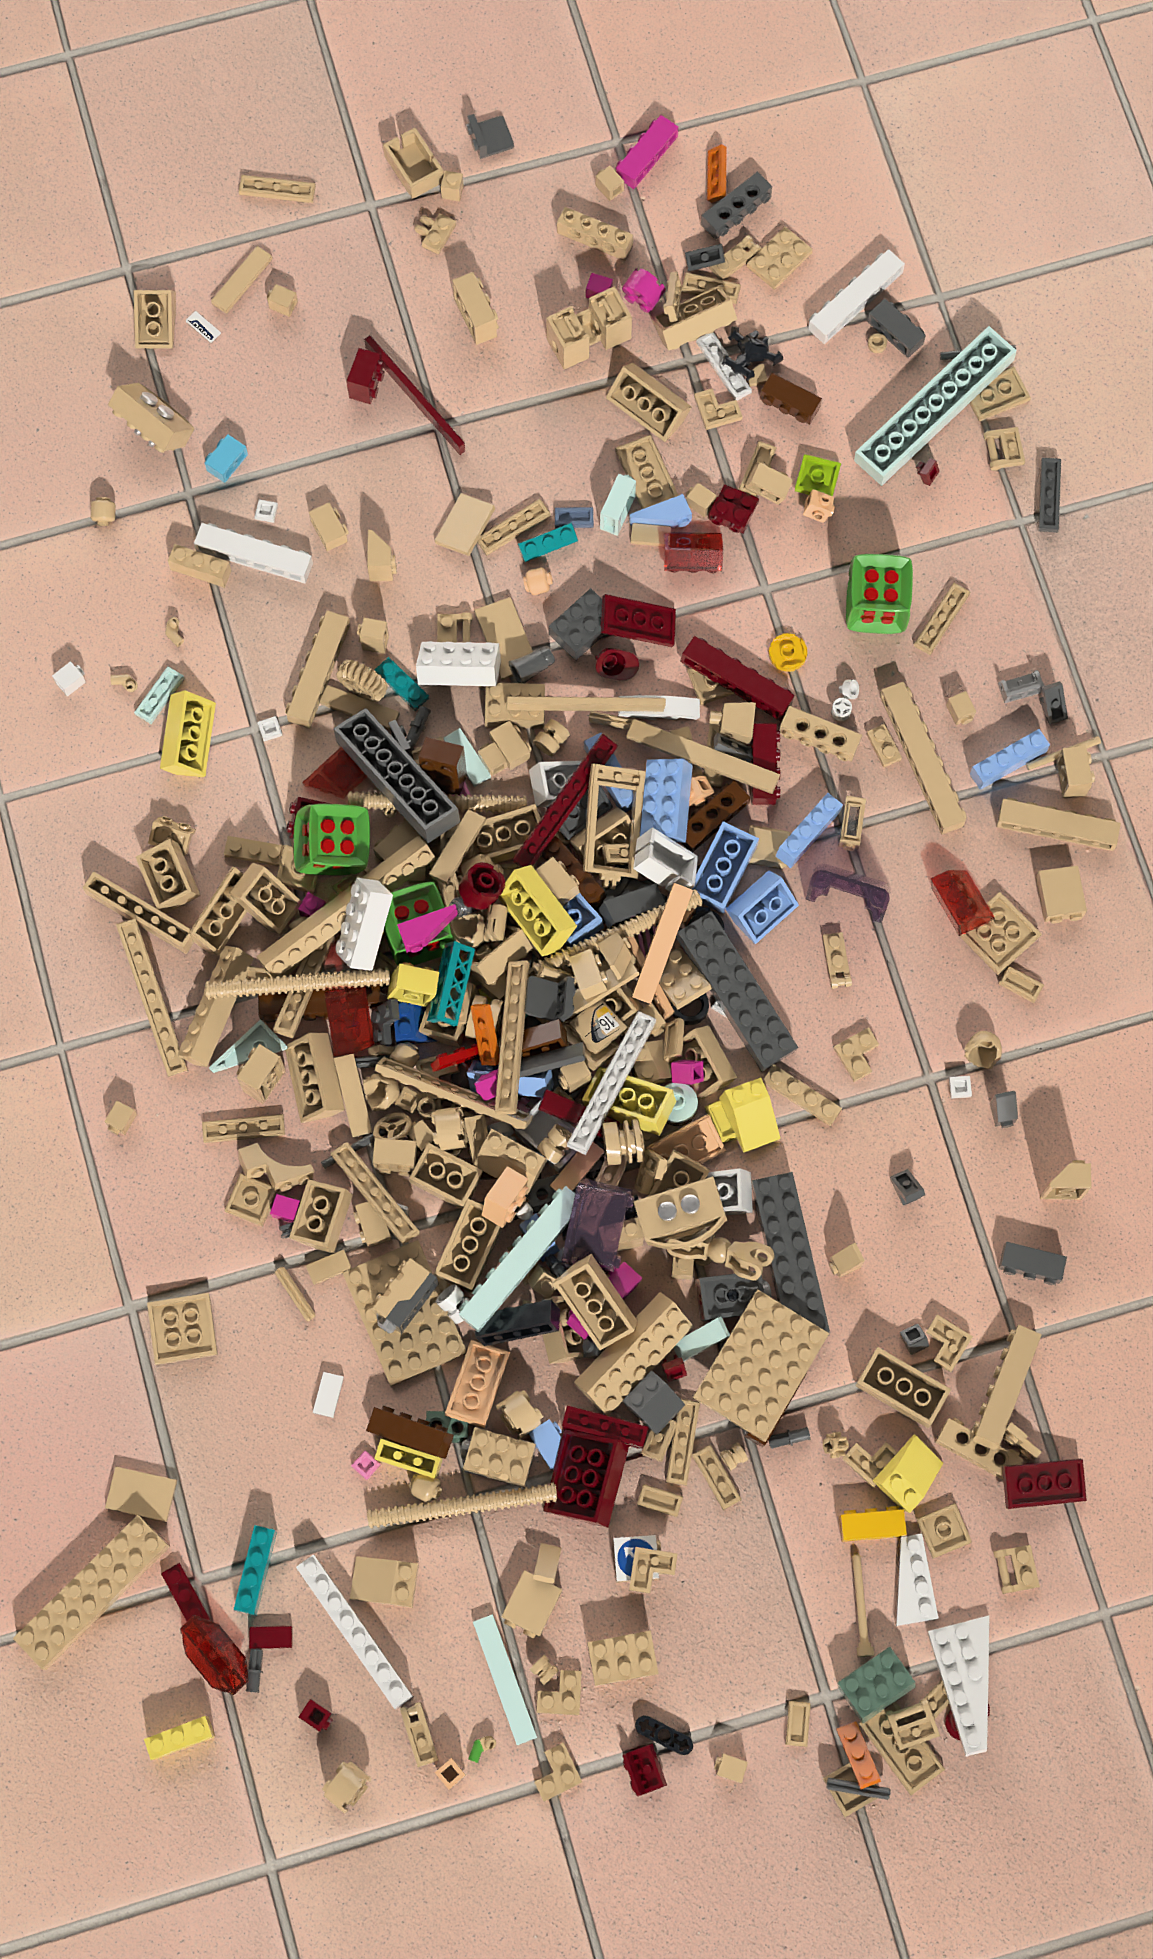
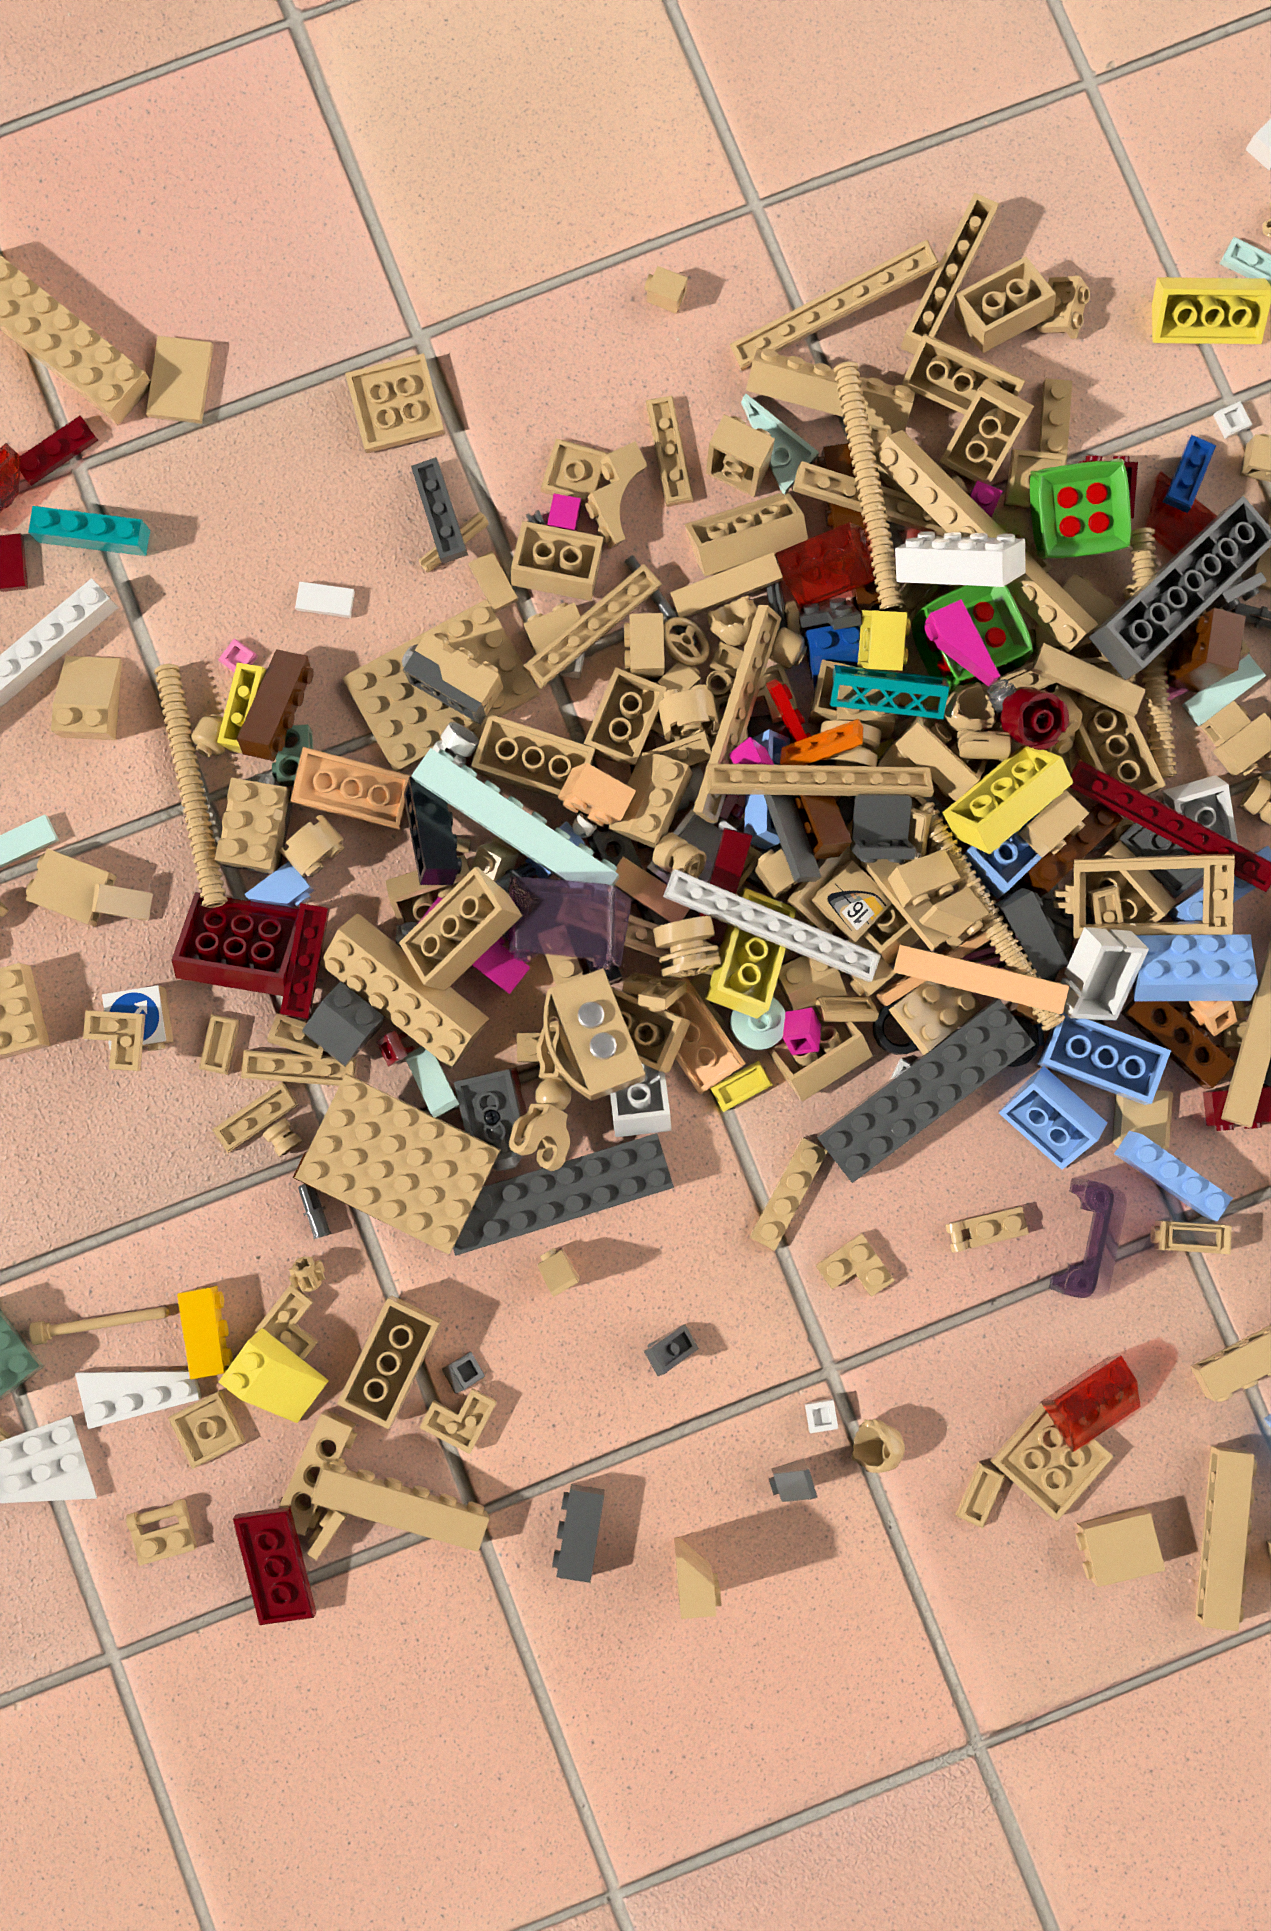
camera: 85 degrees right, 10 degrees up
(271, 1300) = (439, 510): none -> dark grey plate
(307, 762) = (1189, 473): none -> blue tile
(751, 1114) = (751, 1124): light yellow slope -> none

